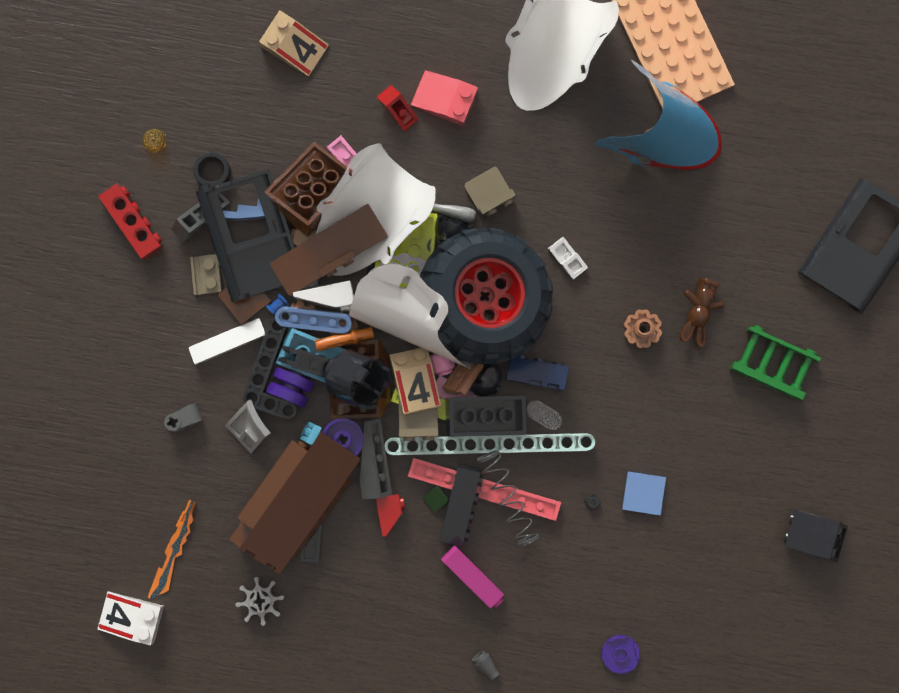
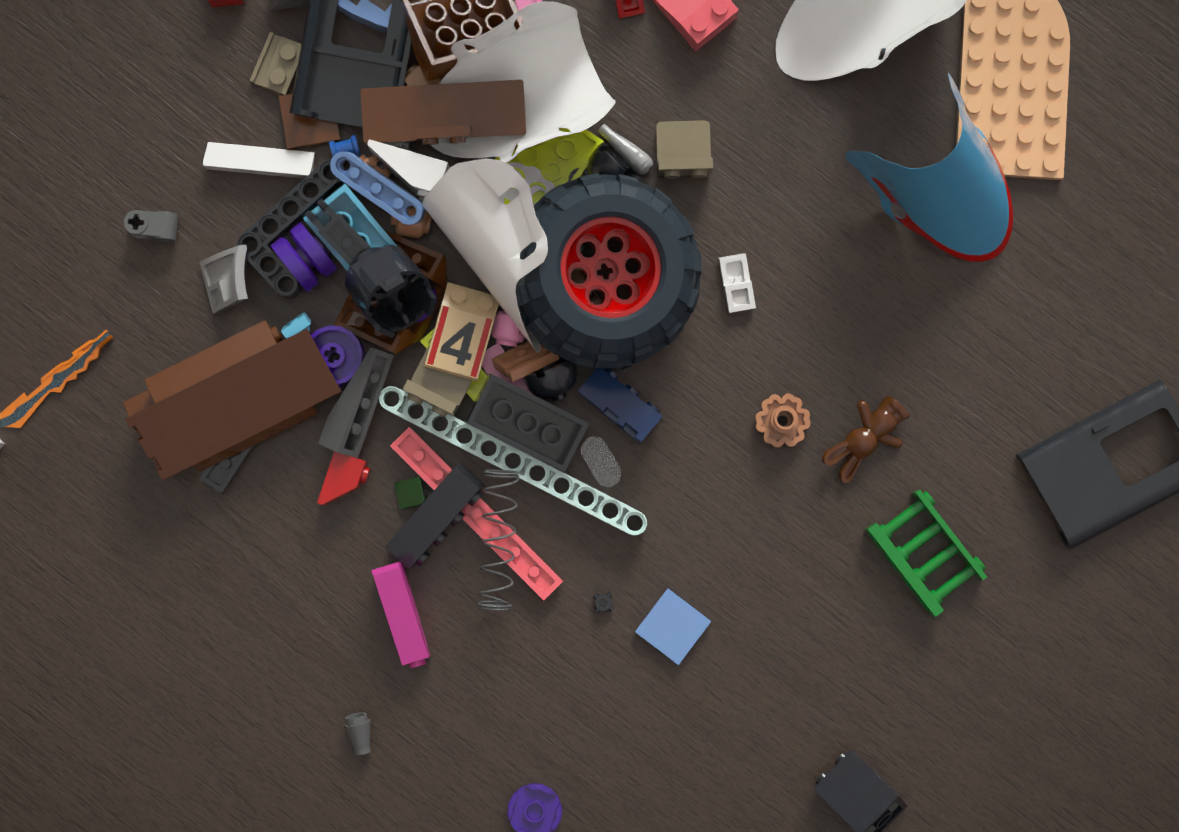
camera: 30 degrees right, 0 degrees up
(269, 599) = (129, 491): light grey gear -> none
(345, 338) = (403, 232): orange pin -> none

